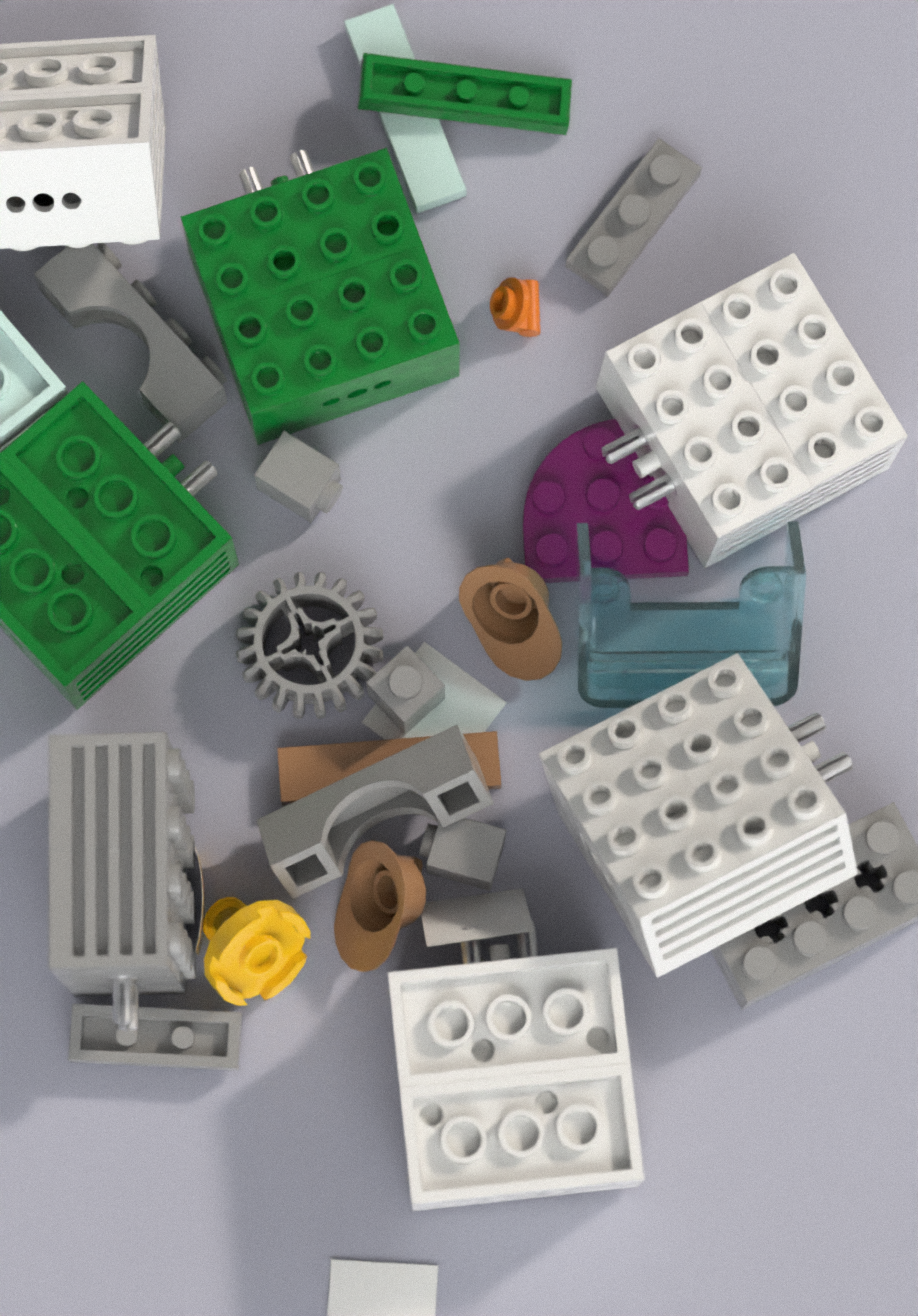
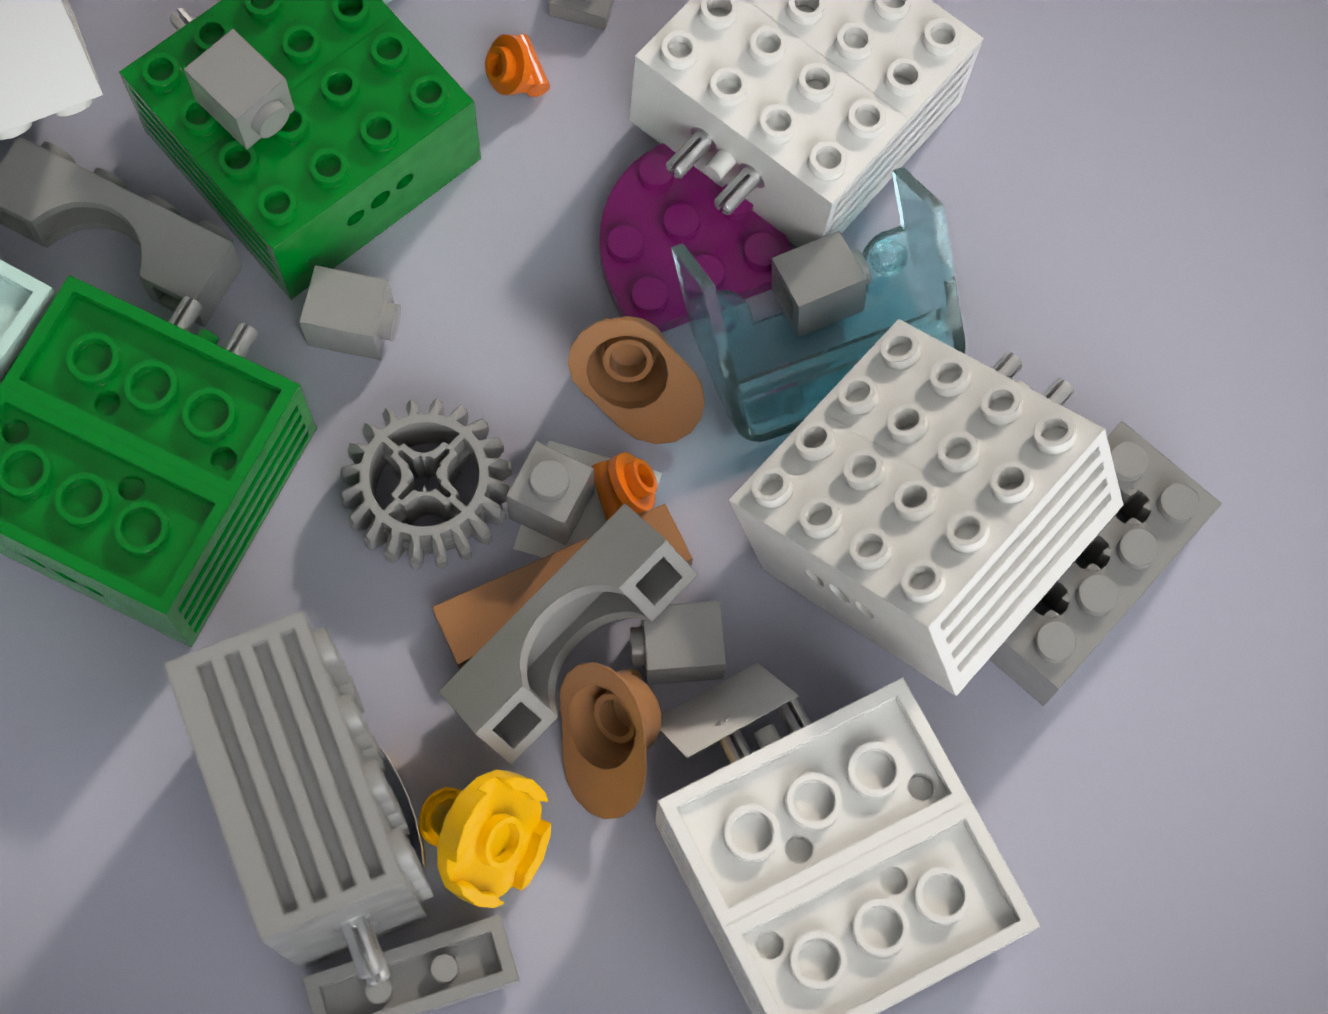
camera: 25 degrees left, 5 degrees down
(270, 276) = (240, 89): none -> light grey brick
(470, 704) = (625, 481): none -> orange plate
(696, 592) = (820, 283): none -> light grey brick

